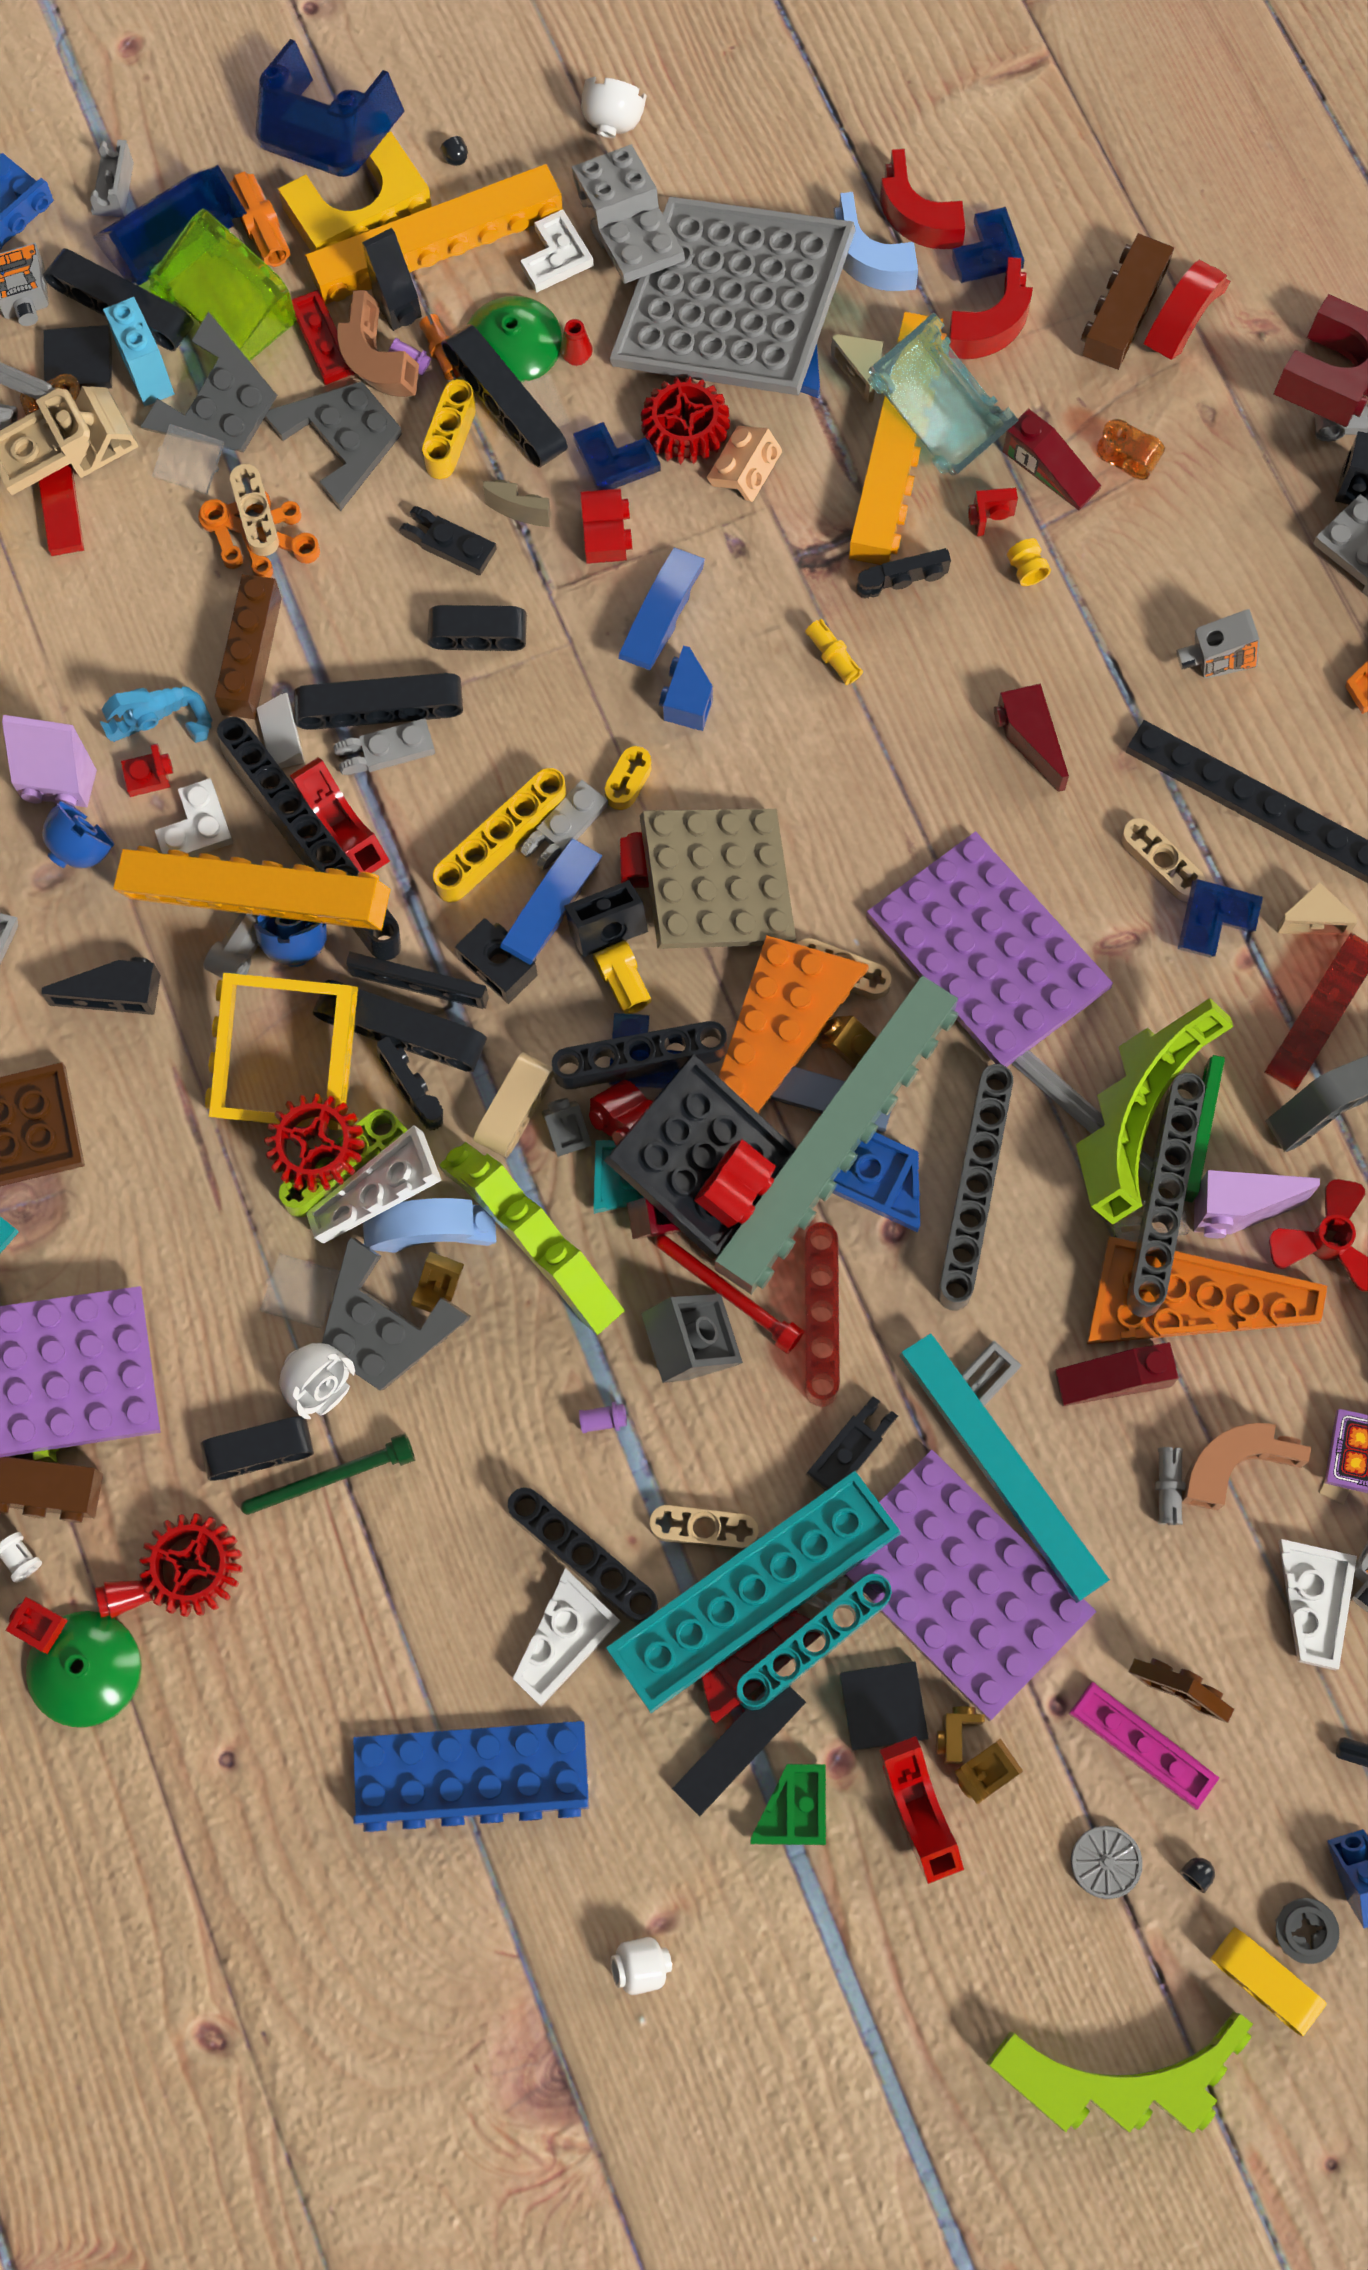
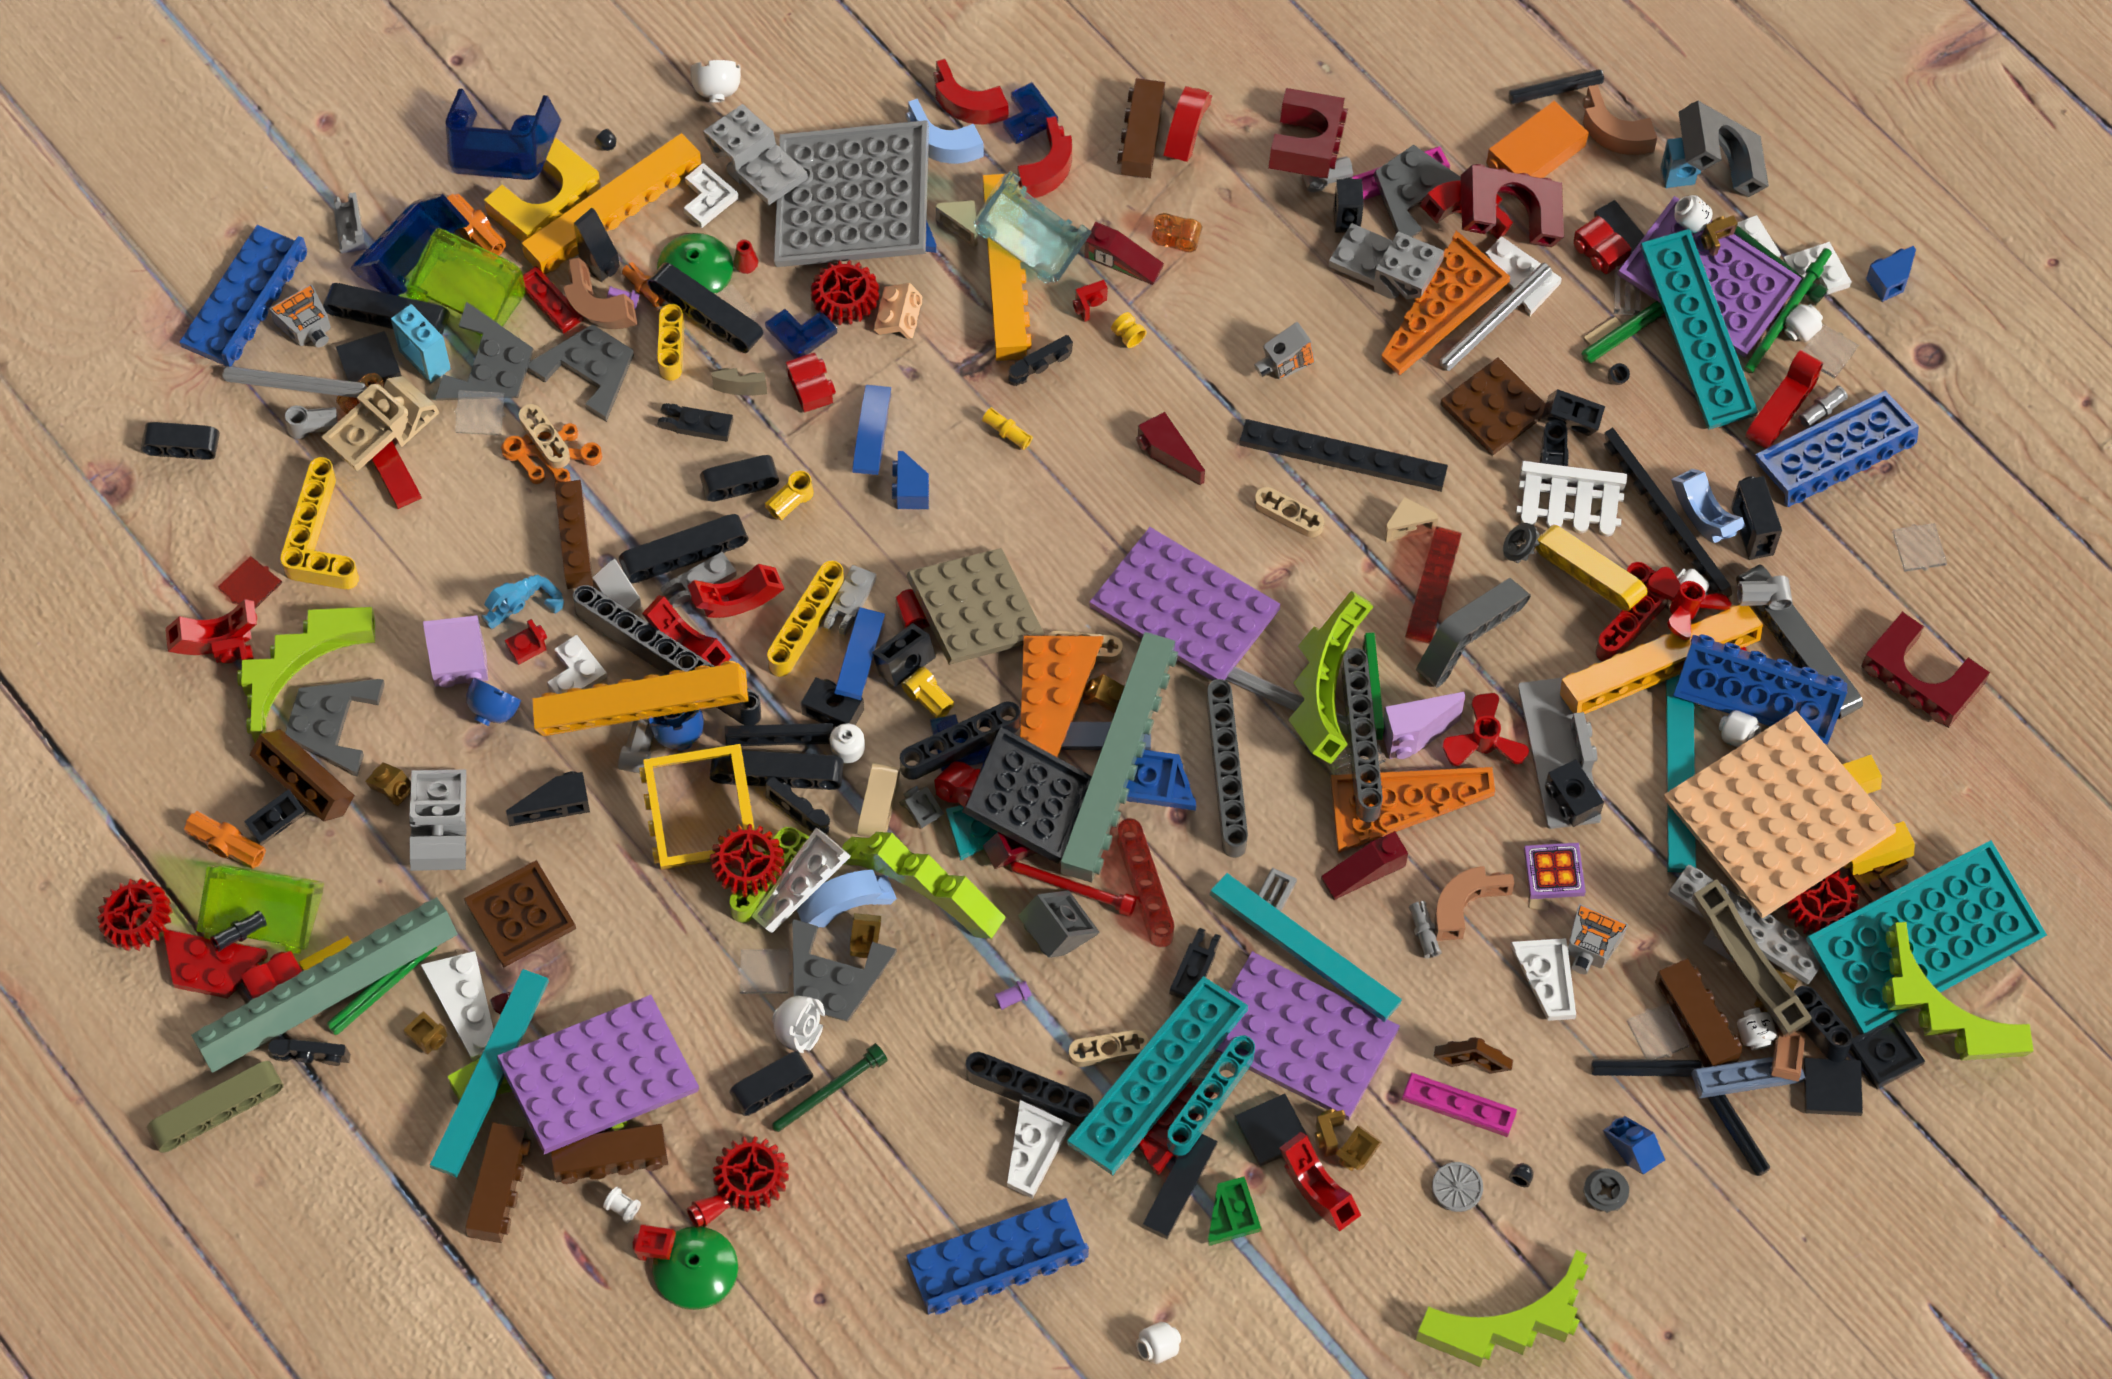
camera: 20 degrees left, 10 degrees down
(421, 782) = (739, 595): none -> red arch
(498, 1016) = (847, 742): none -> white head
(530, 669) = (789, 497): none -> yellow piece
(622, 774) = (880, 554): yellow beam -> none
(735, 1184) = (1059, 805): red brick -> none
(1212, 907) = (1334, 535): clear blue plate -> none
(1268, 1981) = (1589, 1228): yellow beam -> none

